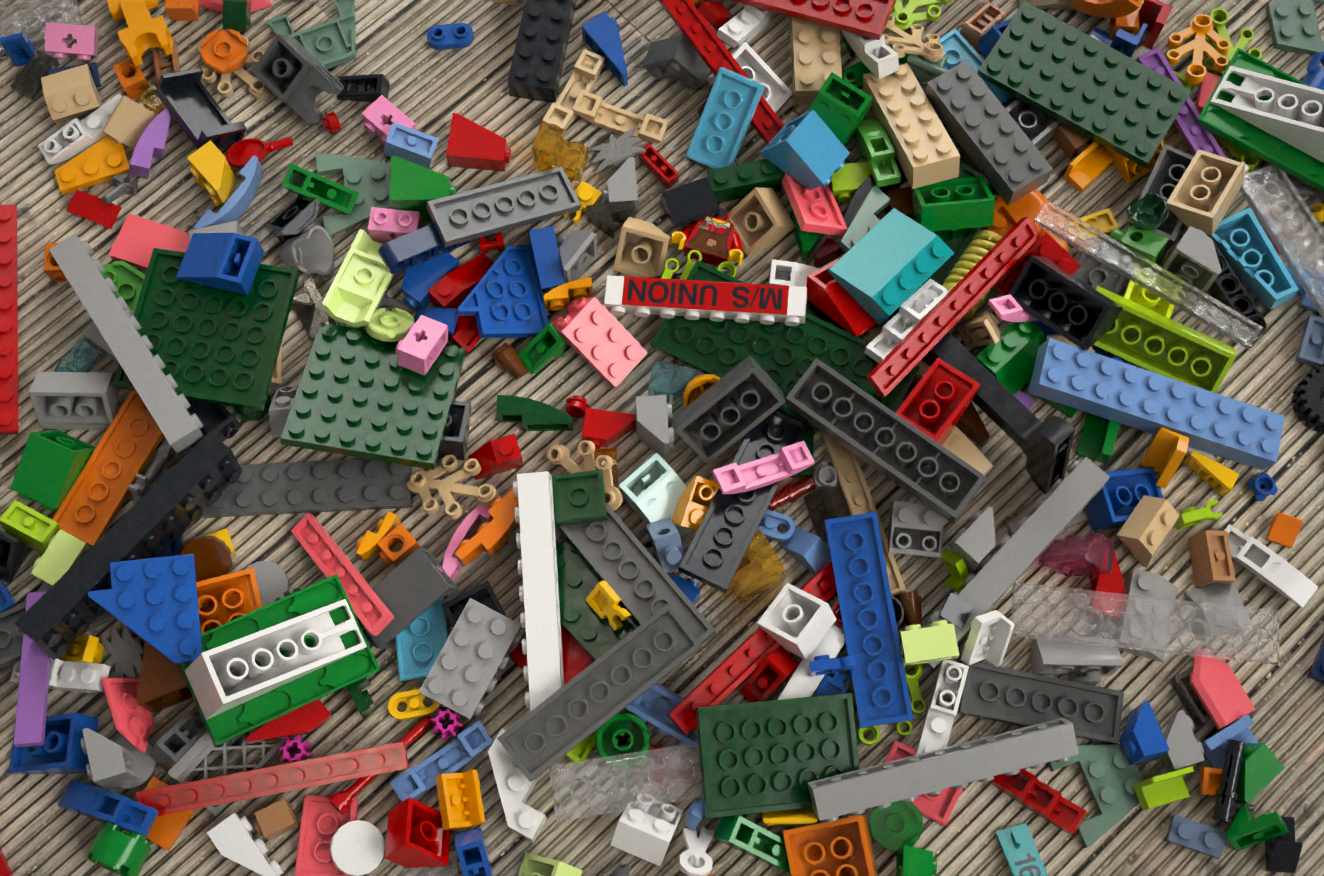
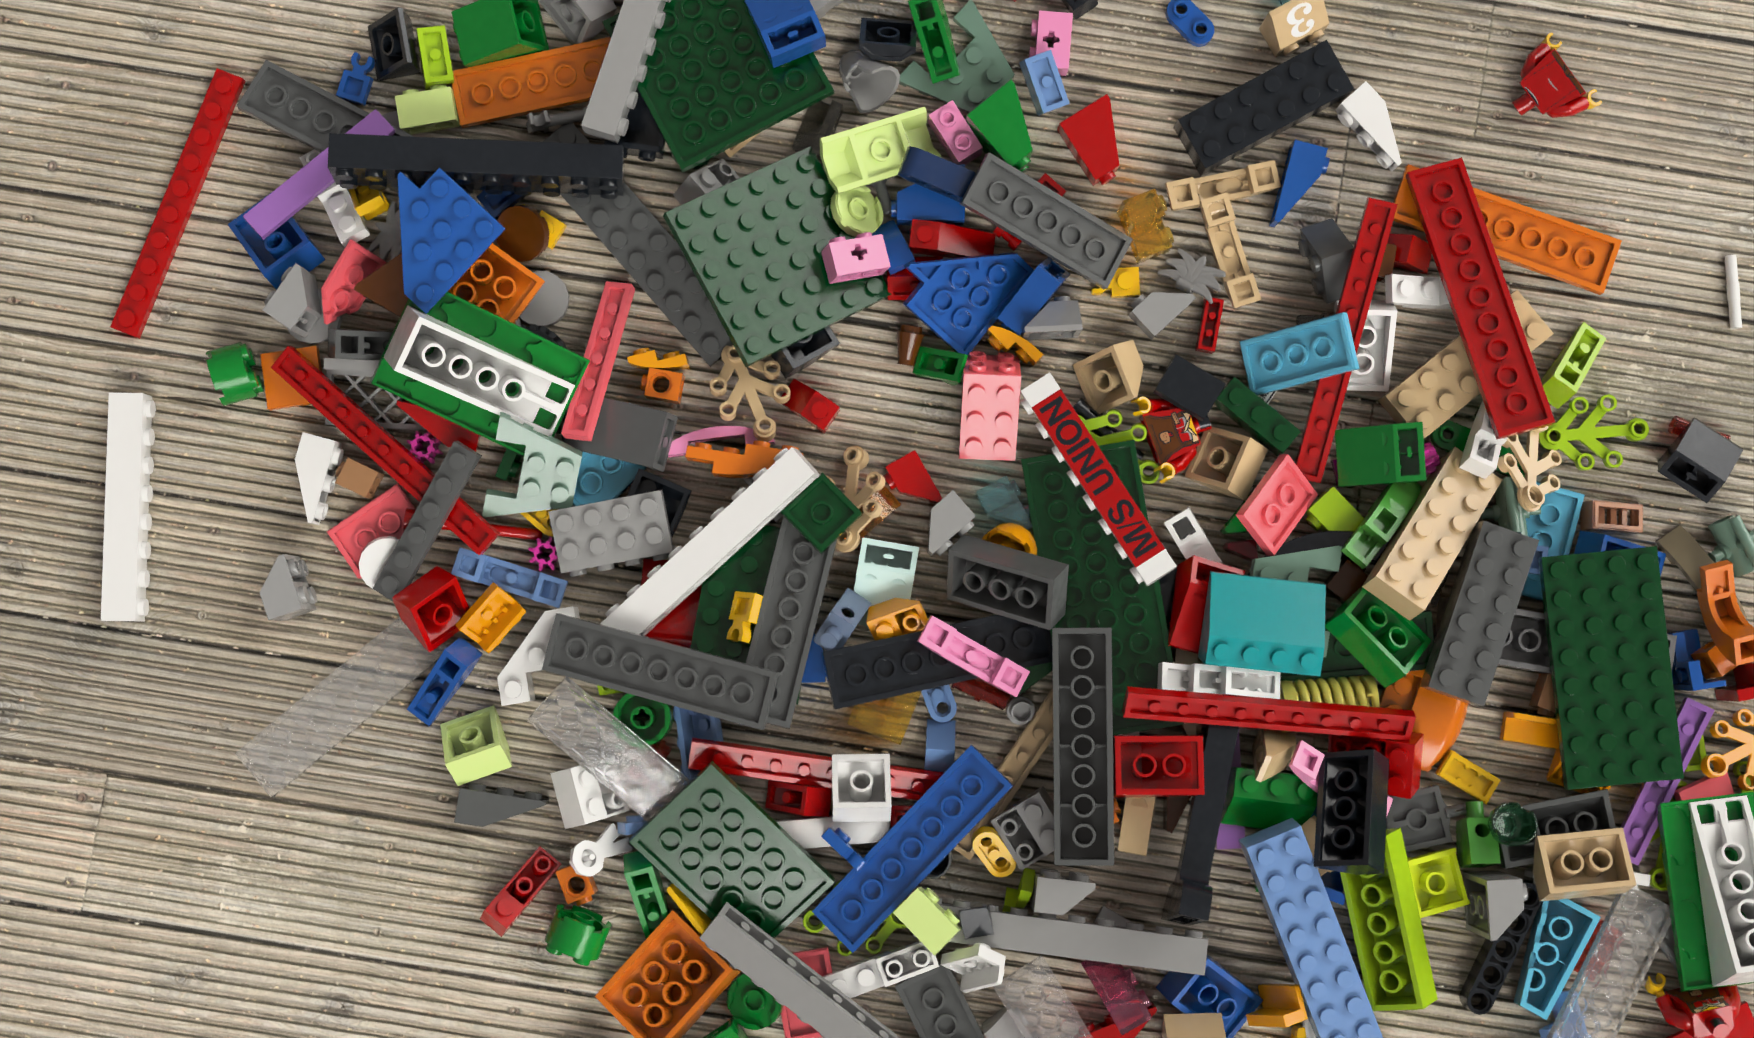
camera: 55 degrees right, 15 degrees up
(109, 807) = (258, 334): blue slope -> none
(351, 787) = (427, 520): none -> dark grey plate
(390, 671) = (546, 475): none -> wing
(532, 414) = (874, 403): dark green slope -> none
(576, 406) = (914, 437): red plate -> none
(604, 215) = (1117, 314): clear smoke slope -> none
(807, 151) = (1324, 457): dark azure slope -> none
(825, 504) = (991, 735): clear smoke panel -> none
(833, 685) = (831, 859): blue plate -> none
(910, 567) = (991, 850): none -> yellow plate
(912, 607) = (957, 876): reddish brown cone -> none
(1097, 438) = (1250, 931): green panel -> none
(1148, 275) = (1451, 866): clear plate -> none

